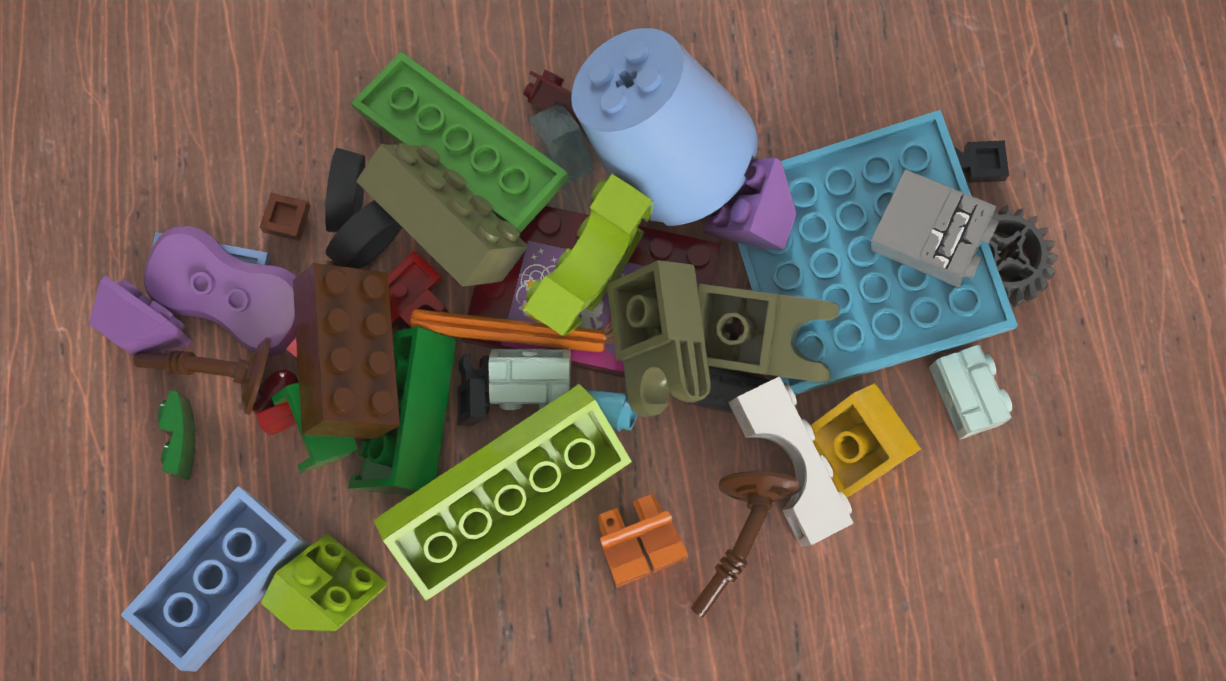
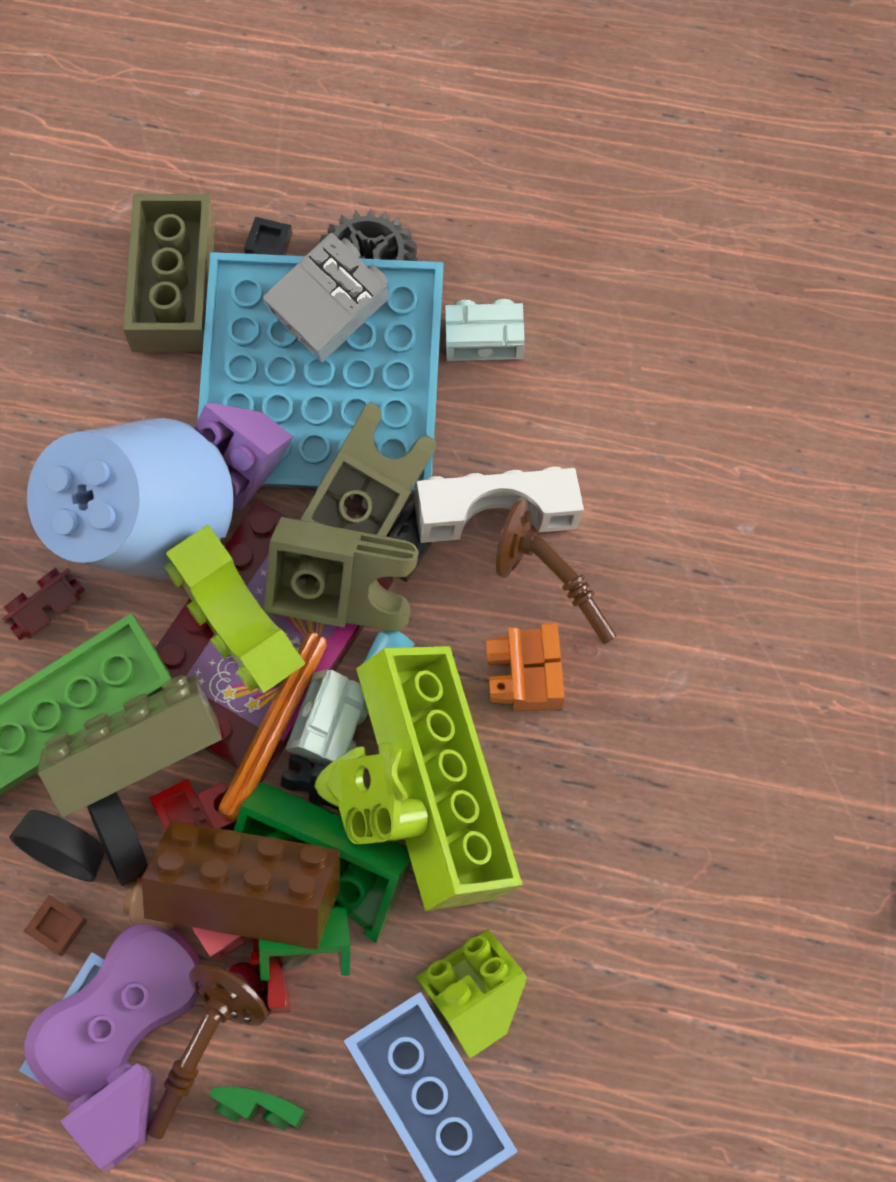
camera: 70 degrees left, 5 degrees down
(441, 443) = (383, 809): none -> lime piece
(562, 141) = (85, 613): clear light blue slope -> none
(862, 439) = (497, 434): yellow slope -> none
(915, 79) = (168, 272): none -> olive brick

